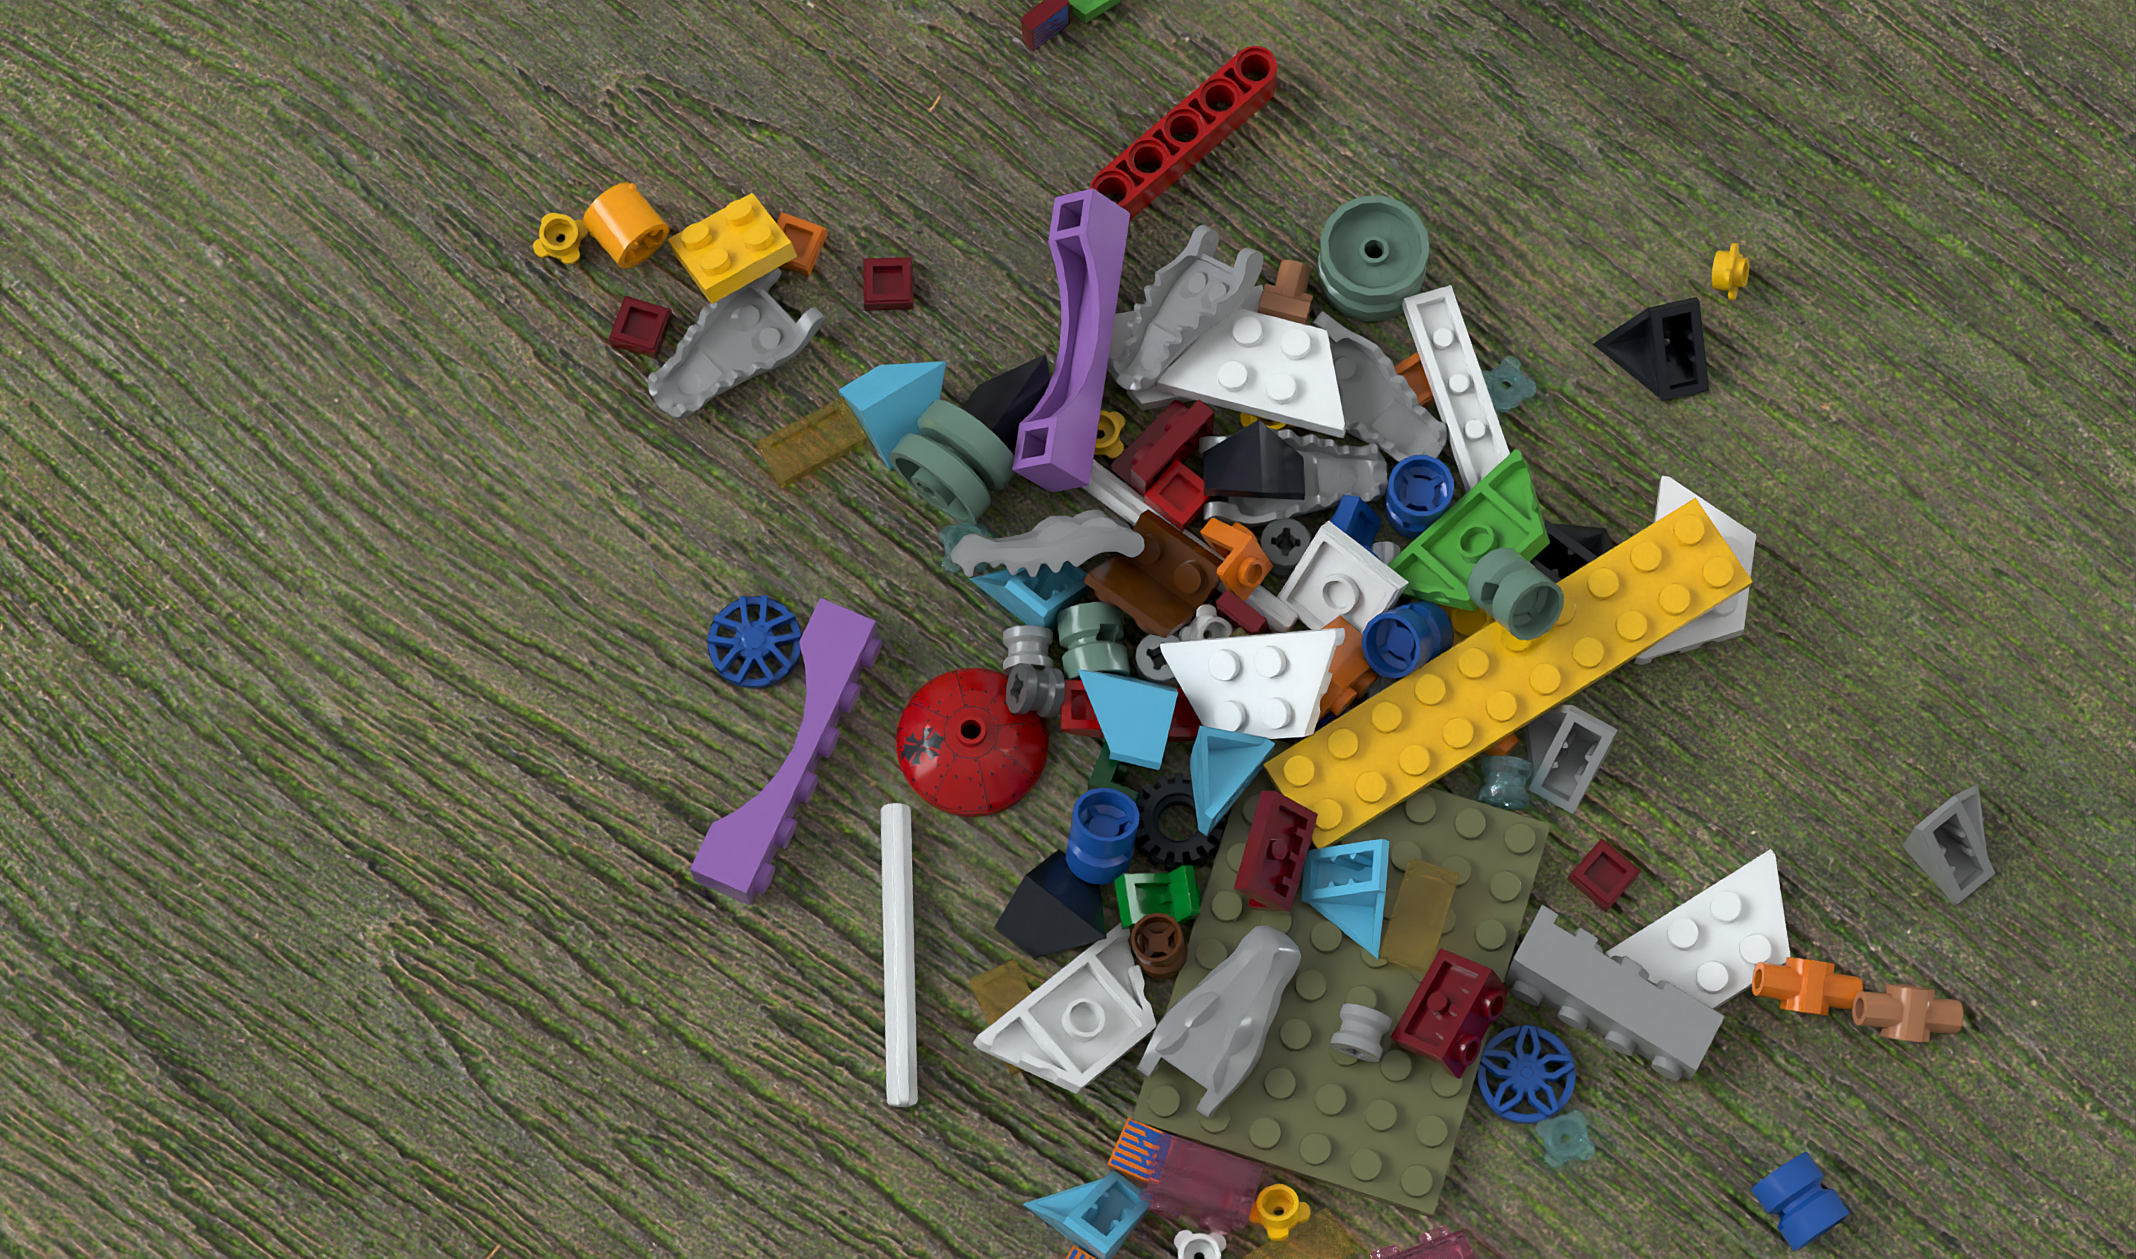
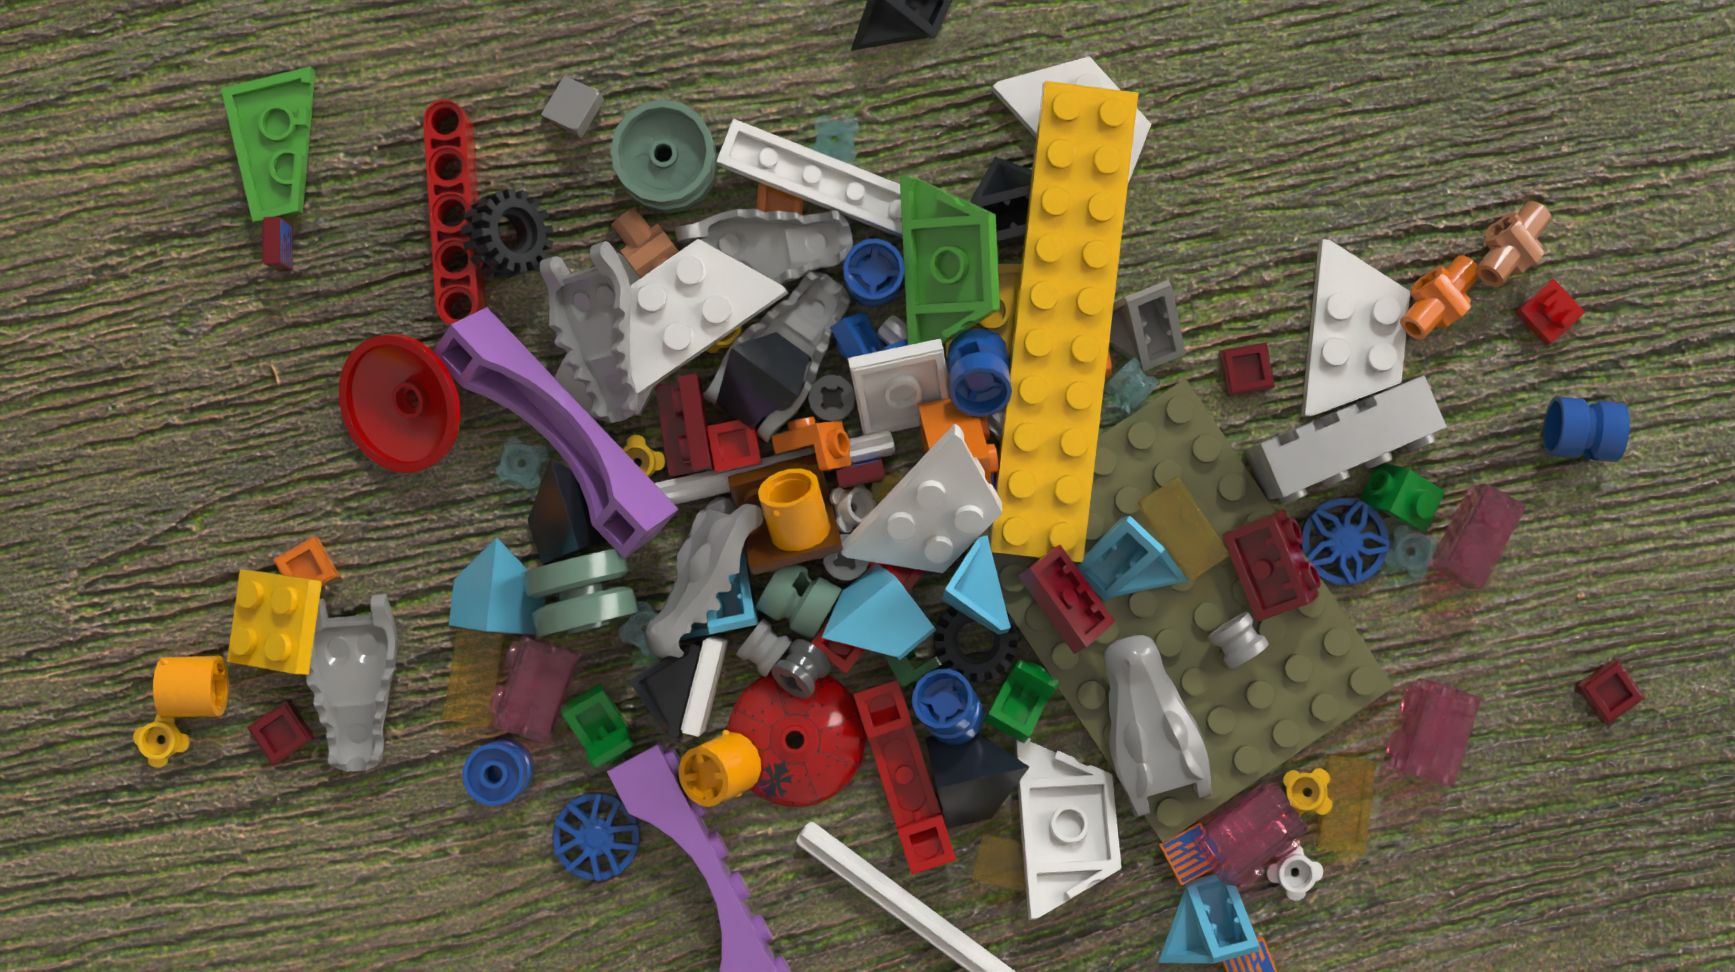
camera: 55 degrees left, 15 degrees up
(750, 527) = (498, 772): none -> blue wheel
(842, 493) = (534, 688): none -> clear pink brick
(852, 567) = (598, 725): none -> green bracket
(888, 283) = (394, 523): dark red tile -> none
(896, 689) = (719, 769): none -> light orange piece
(933, 597) = (667, 688): none -> black slope
(958, 620) = (704, 685): none -> white tile
(993, 206) = (383, 408): none -> red dish
(1014, 850) = (904, 777): none -> red slope
(1021, 330) = (509, 467): none -> clear light blue plate
(1151, 937) = (1058, 736): reddish brown wheel -> none
(1165, 574) = (794, 509): none -> light orange piece
(1180, 178) = (486, 240): none -> black tyre
(1353, 162) = (573, 106): none -> light grey slope
(1515, 593) = (1020, 273): sand green wheel -> none
(1608, 1093) = (1402, 495): none -> green bracket
(1625, 1179) = (1476, 536): none -> clear pink brick
(1879, 1098) = (1550, 312): none -> red tile
(1953, 846) = (1417, 111): light grey slope -> none

